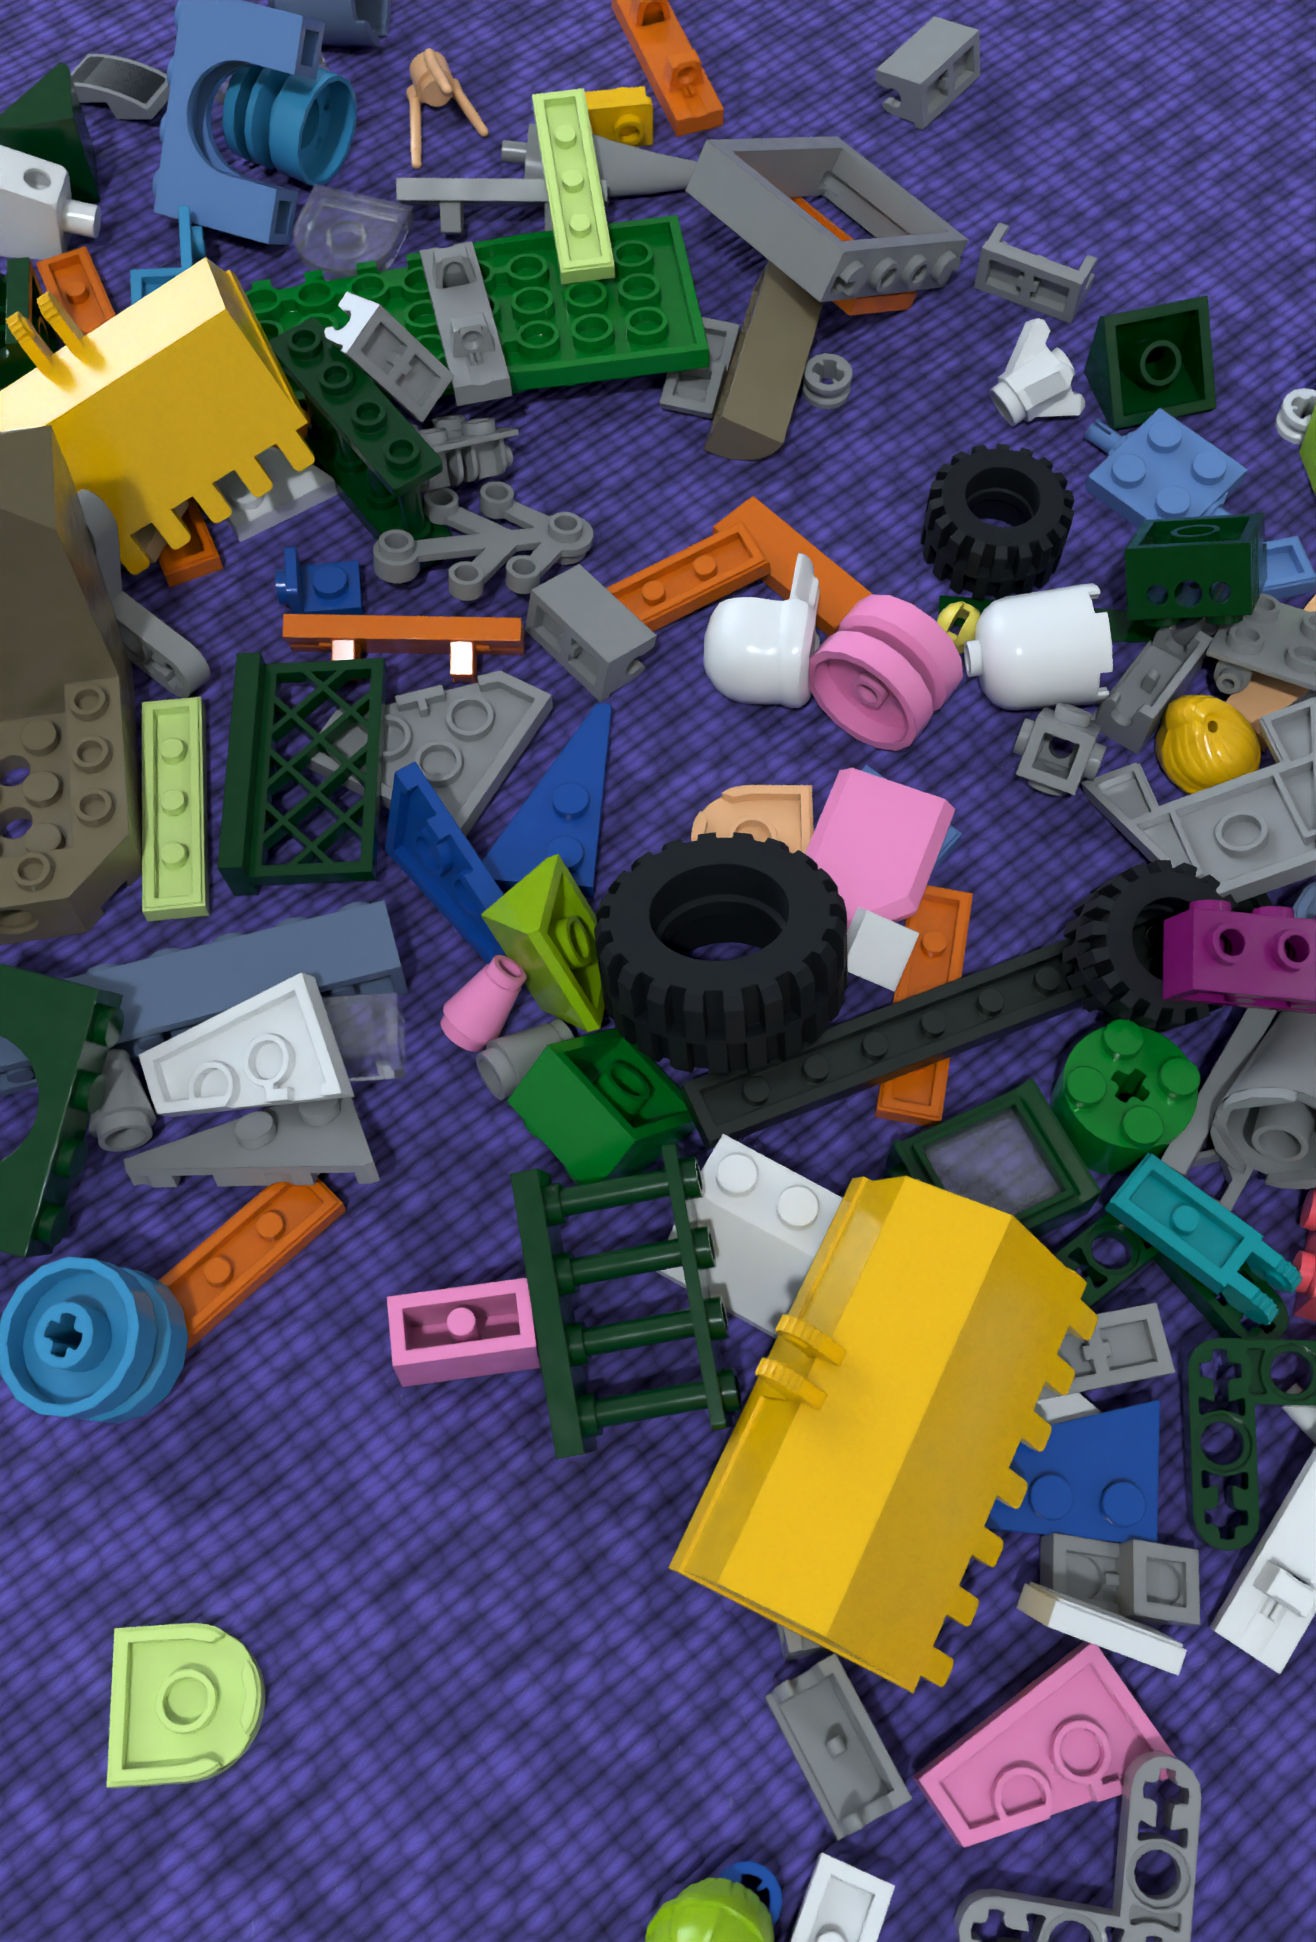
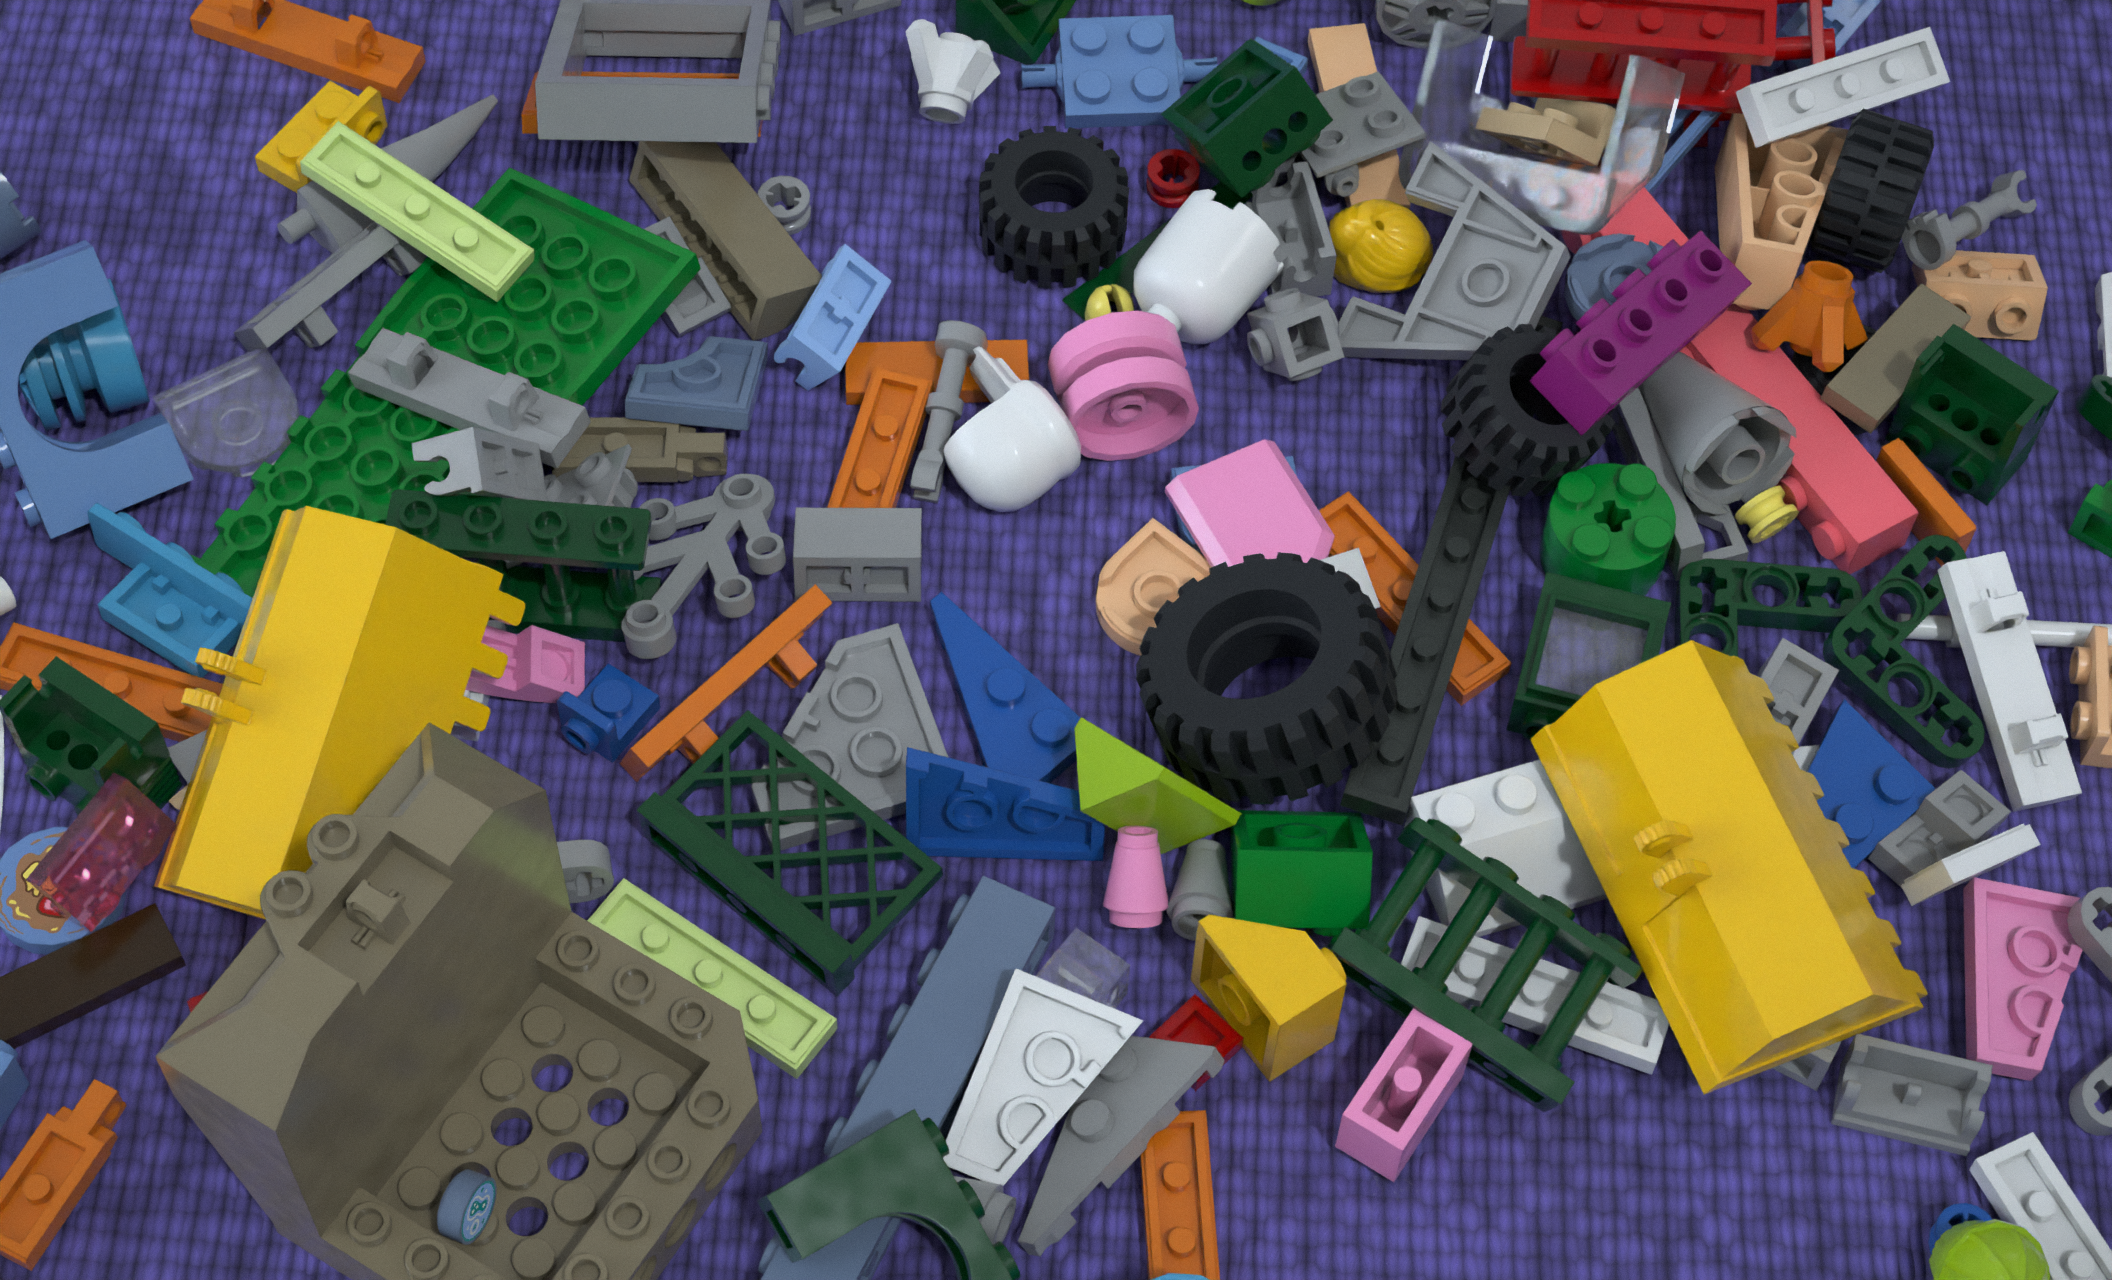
camera: 50 degrees left, 5 degrees down
(308, 515) = (537, 668): none -> bright pink slope
(402, 1152) = (1200, 1025): none -> red tile
(435, 87) = (145, 224): light nougat plant -> none
(460, 1168) = (1269, 988): none -> yellow slope
(544, 451) = (658, 449): none -> dark tan hinge
(626, 447) = (704, 389): none -> sand blue tile
(682, 1443) = (1617, 1026): none -> white plate
(695, 618) = (954, 346): none -> light grey piece
(755, 464) = (834, 317): none -> light blue hinge
(1107, 564) = (1175, 163): none -> red bush
(1202, 1237) = (1755, 573): teal hinge -> none
(1274, 1205) = (1766, 514): none -> light yellow bush

